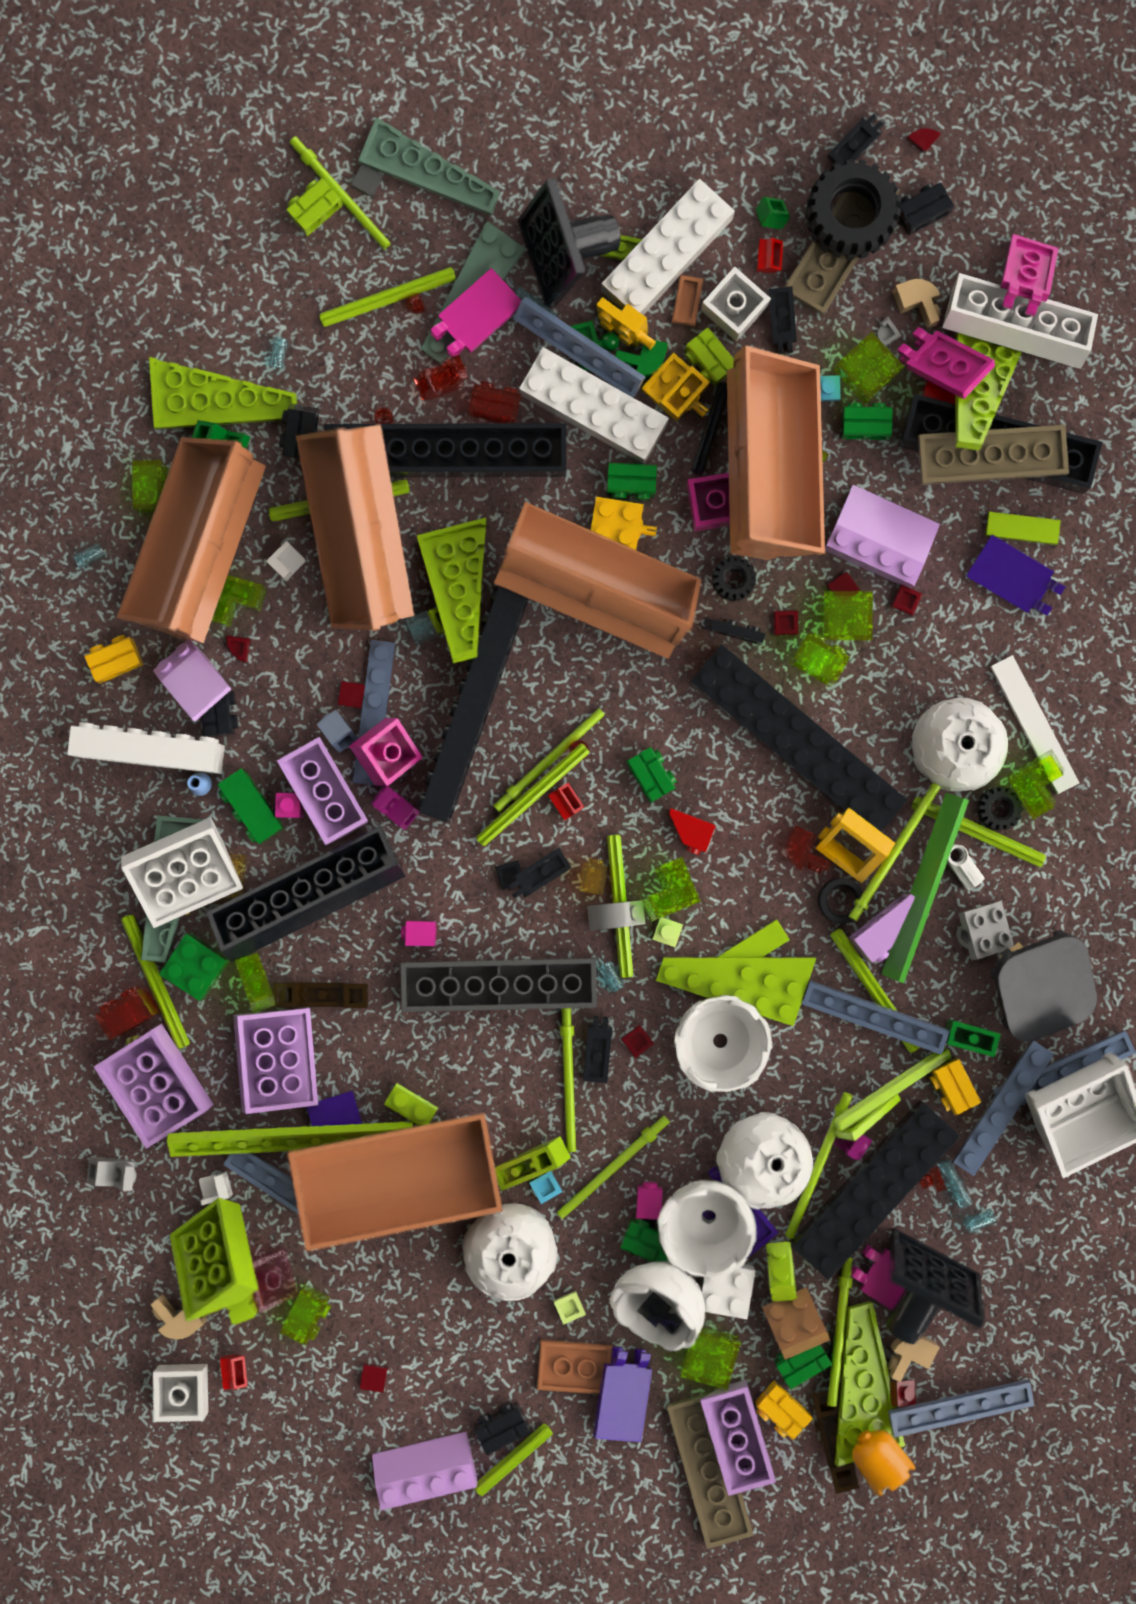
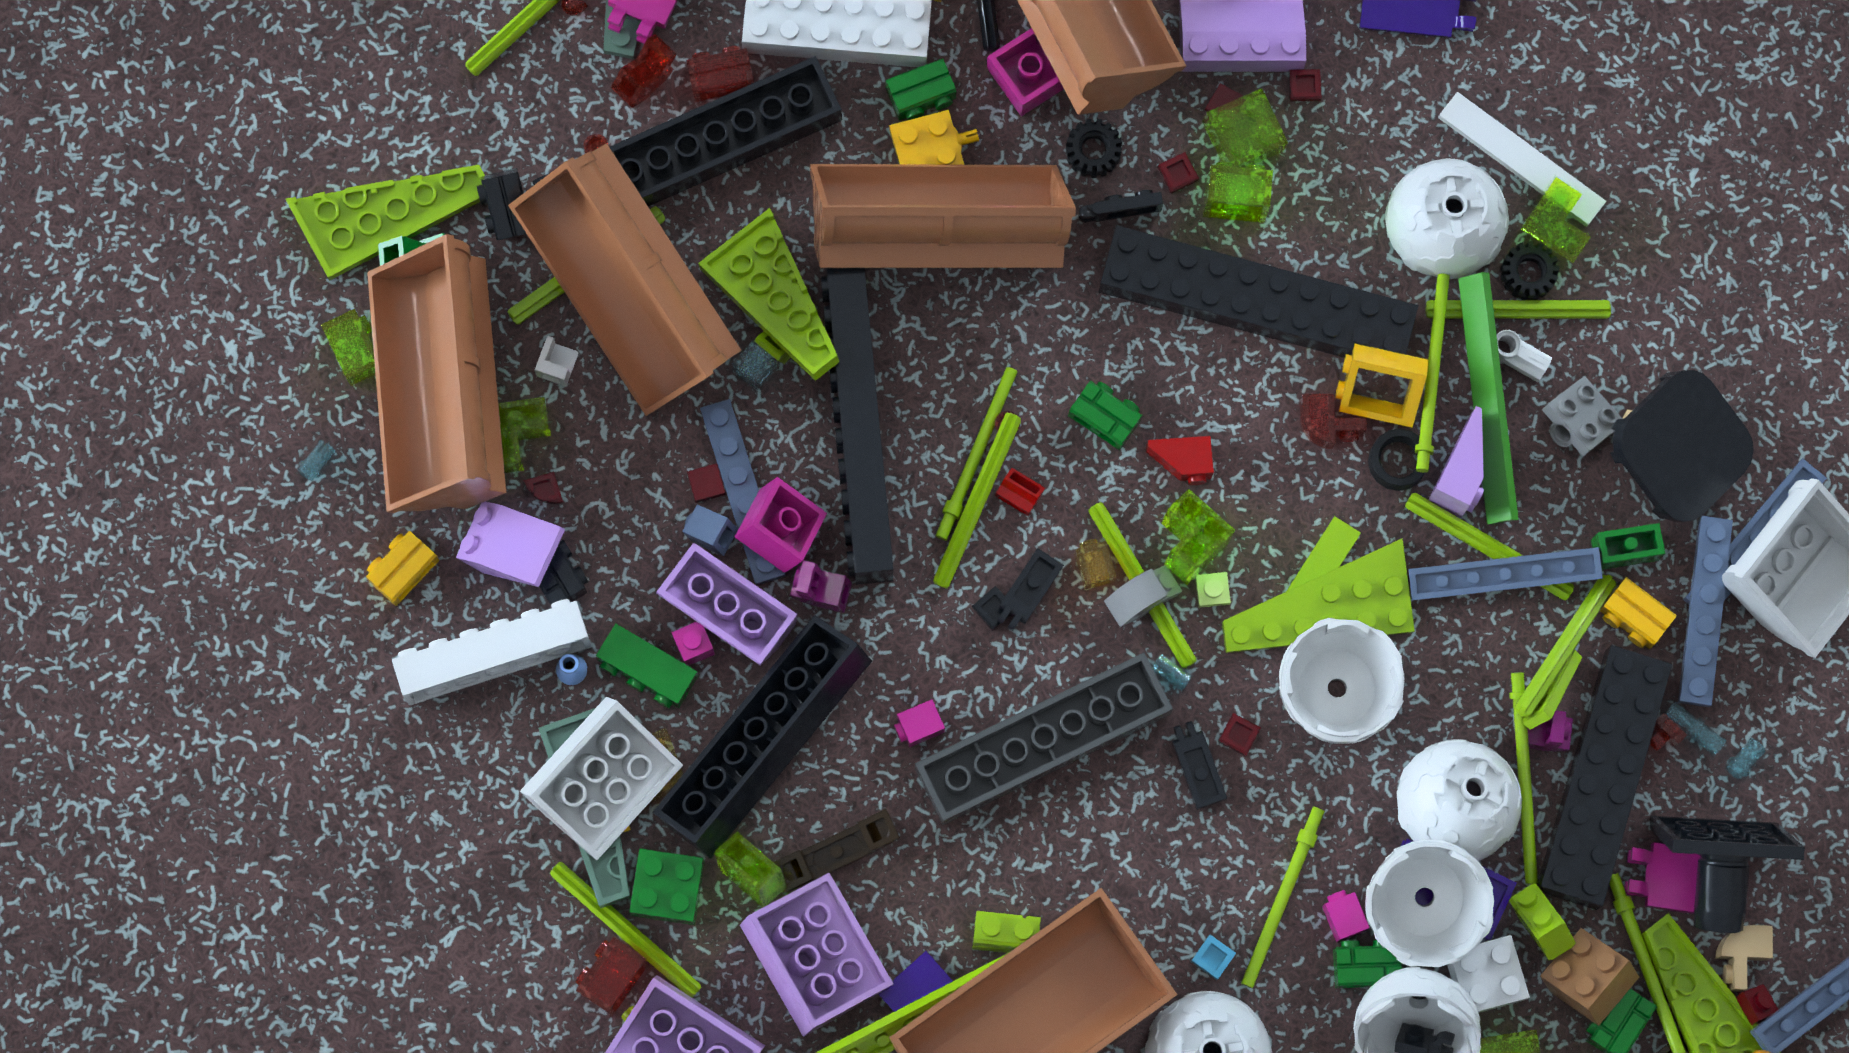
camera: 30 degrees left, 10 degrees down
(278, 352) = (436, 127): clear light blue pin -> none
(532, 1163) = (1186, 932): lime slope -> none
(567, 1032) = (1149, 761): lime bar -> none

